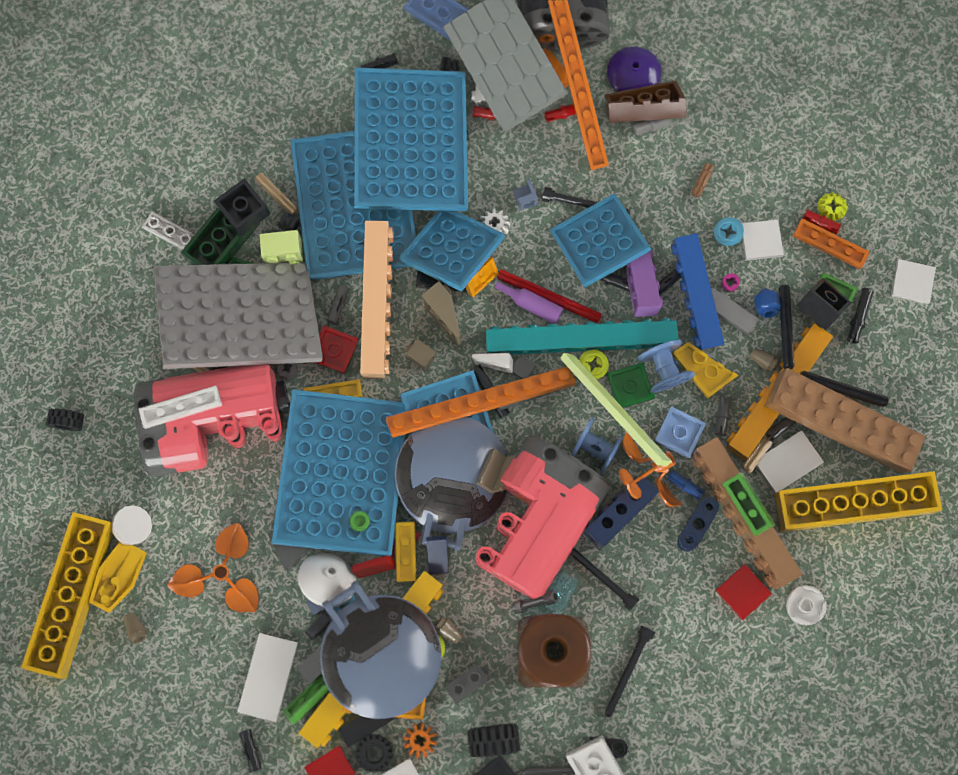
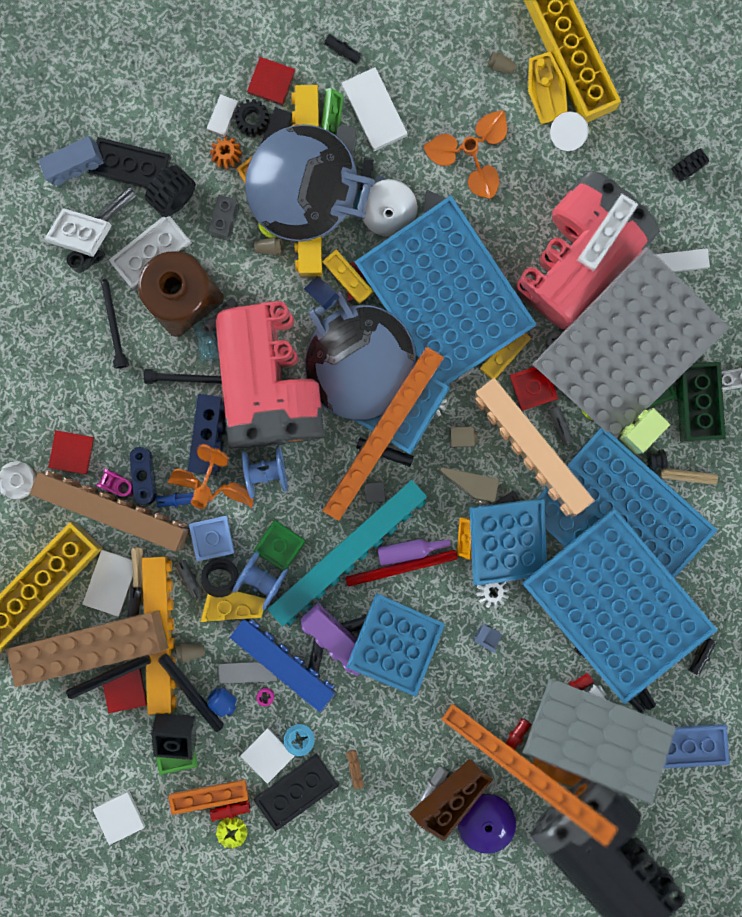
camera: 145 degrees right, 10 degrees up
(142, 358) = (686, 260): none -> white tile
(242, 207) = (703, 434): black brick -> none
(282, 396) = (542, 317): black beam -> none
(359, 521) = (398, 265): bright green tile -> none
(373, 566) = (362, 246): red tile -> none
(493, 471) = (329, 387): dark tan panel -> none
(496, 361) = (395, 480): white slope -> none
(550, 195) = (468, 654): black piece -> none
(550, 708) = (157, 239): none -> white tile
(601, 361) = (313, 535): neon yellow gear -> none
(615, 410) = (271, 509): yellowish green tile -> none
(682, 397) = (214, 565): none -> black tyre
(726, 536) = (113, 483): none -> dark pink piece
(748, 504) = (107, 512): bright green brick -> none
(760, 198) = (296, 792): none -> black tile
(840, 367) = (125, 692): none -> red tile
(858, 321) = (140, 751): black pin -> none

